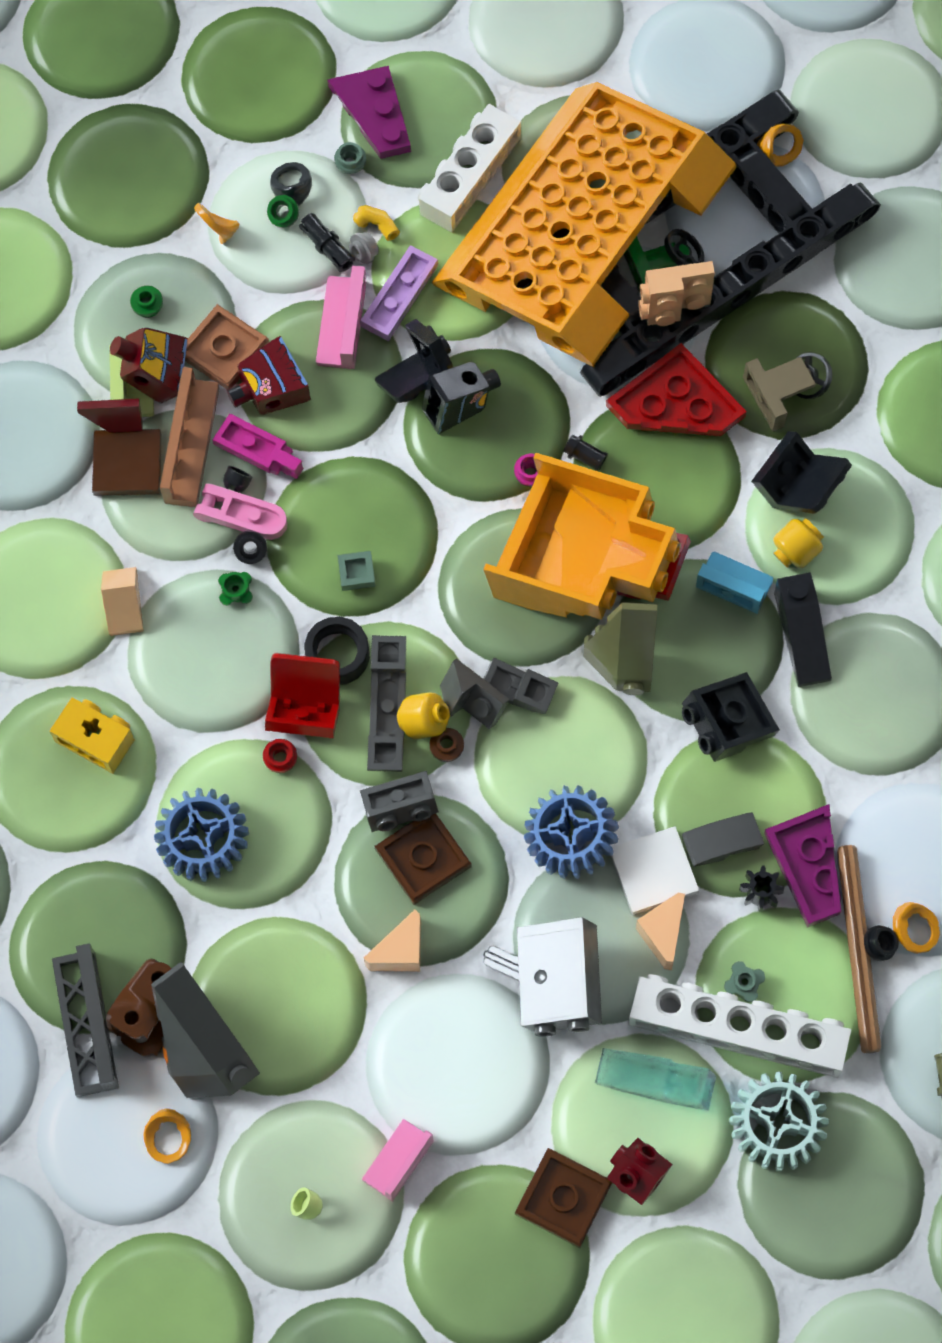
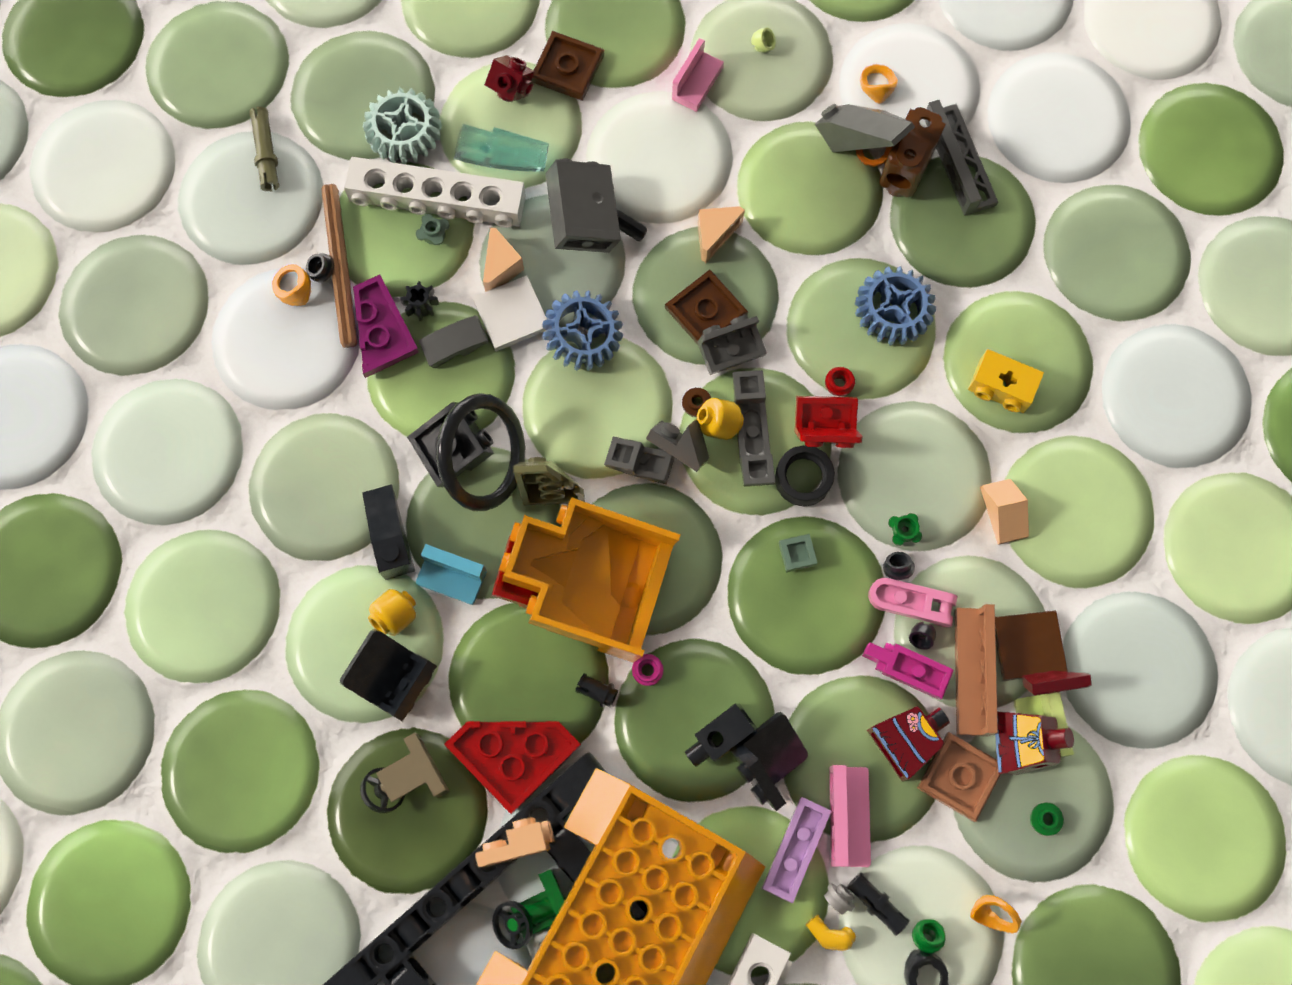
camera: 170 degrees right, 5 degrees up
(718, 698) = (445, 445): none -> black wedge

